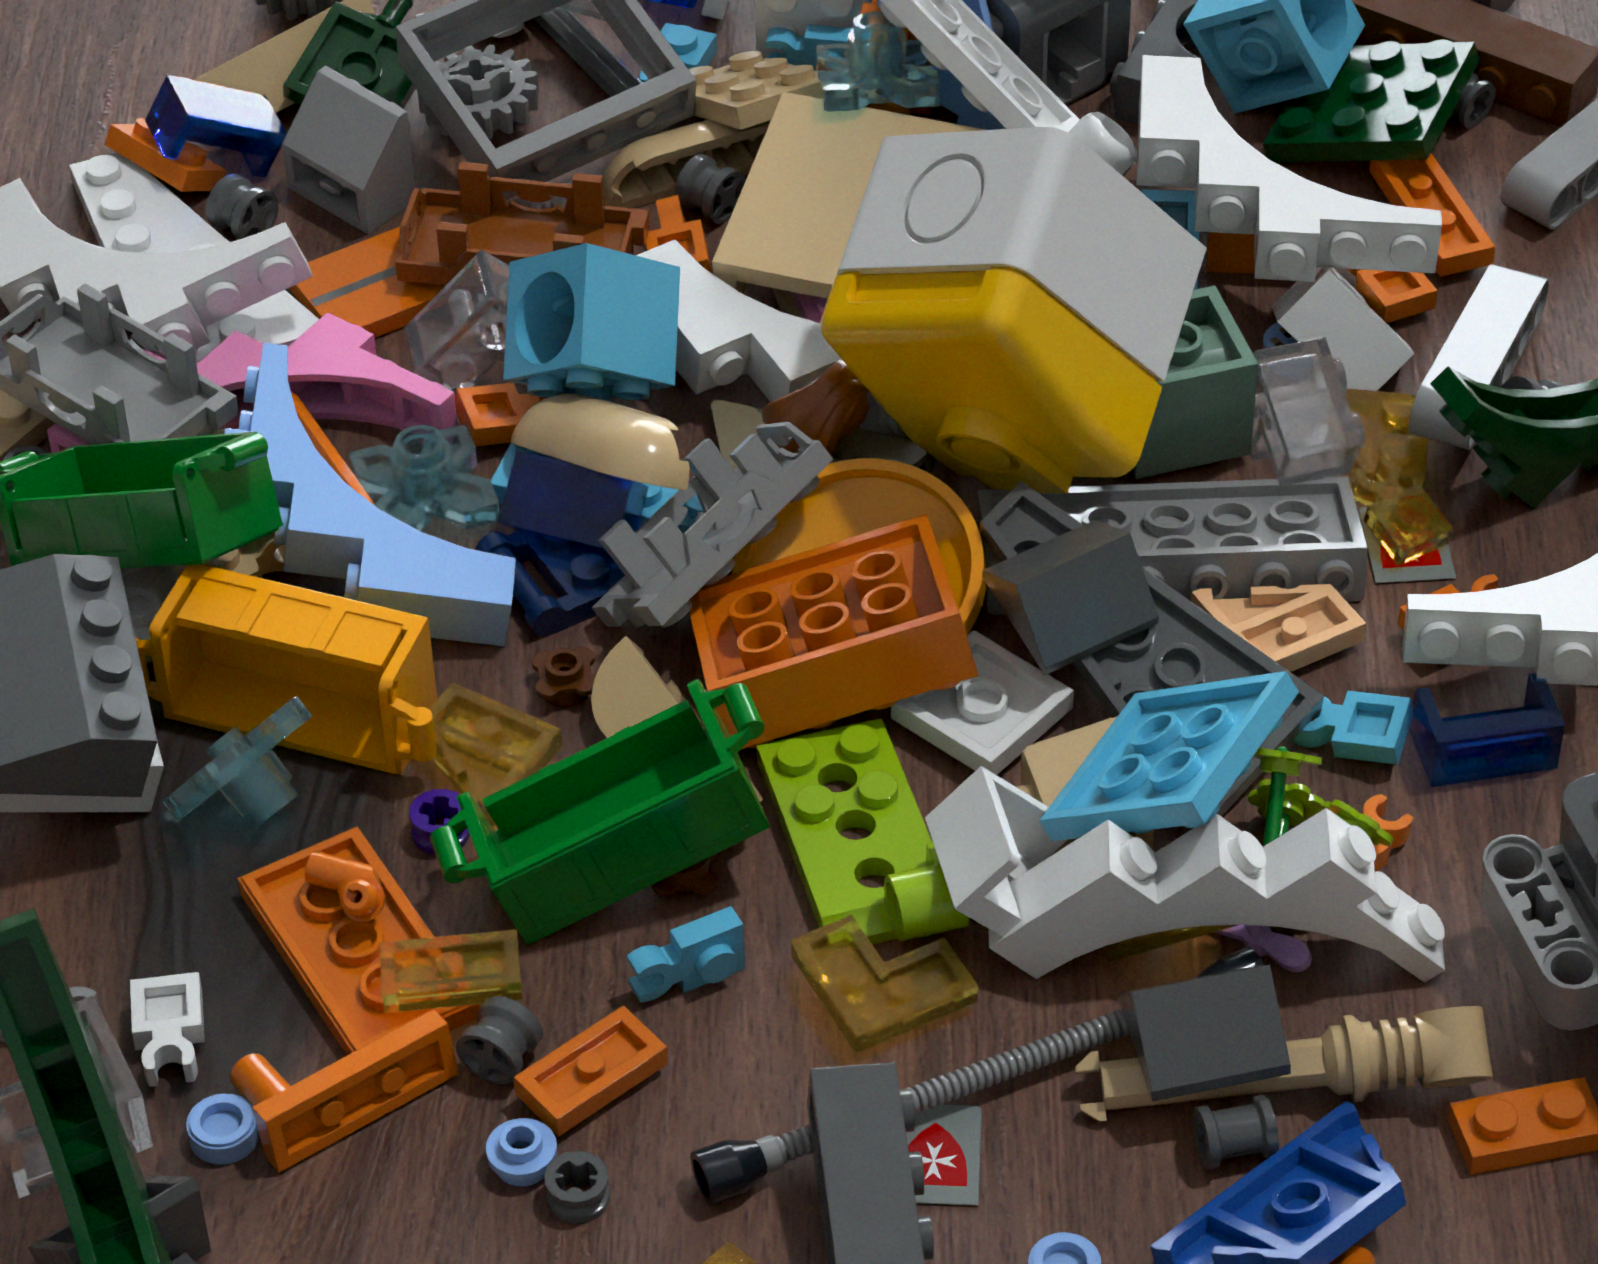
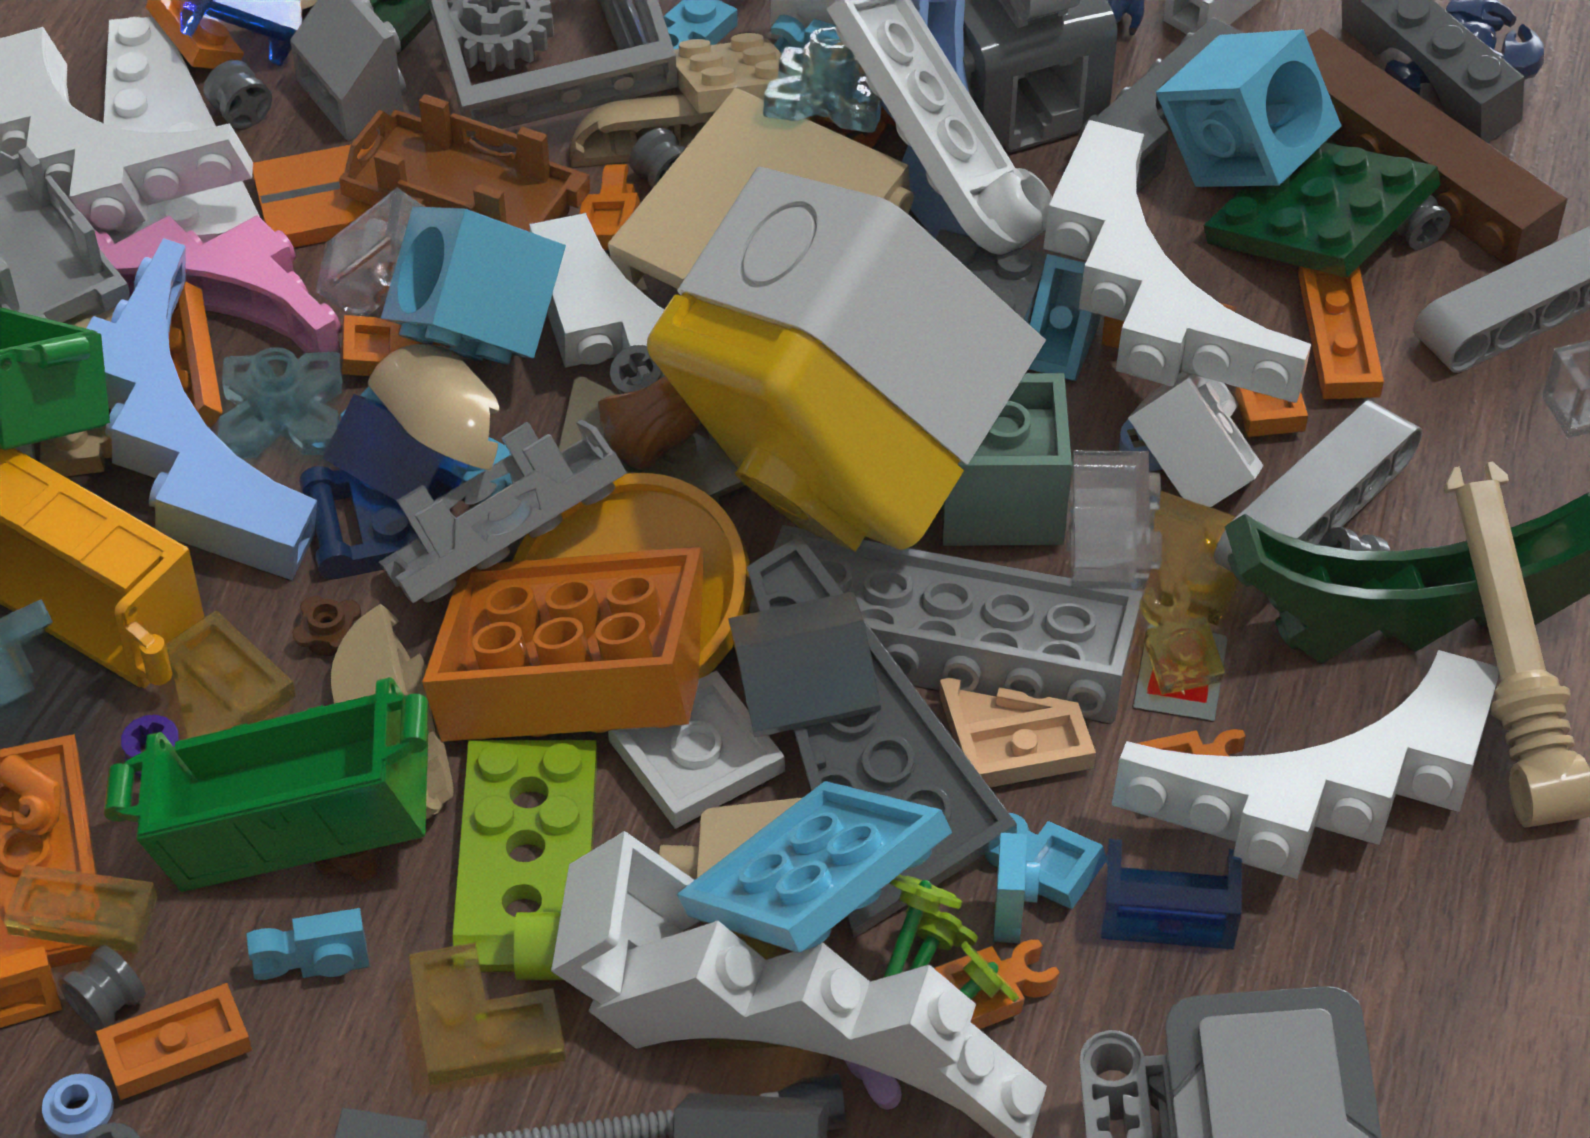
camera: 15 degrees right, 5 degrees up
(785, 359) = (626, 367): none -> dark grey bush
(1347, 746) = (1015, 885): none -> medium azure plate

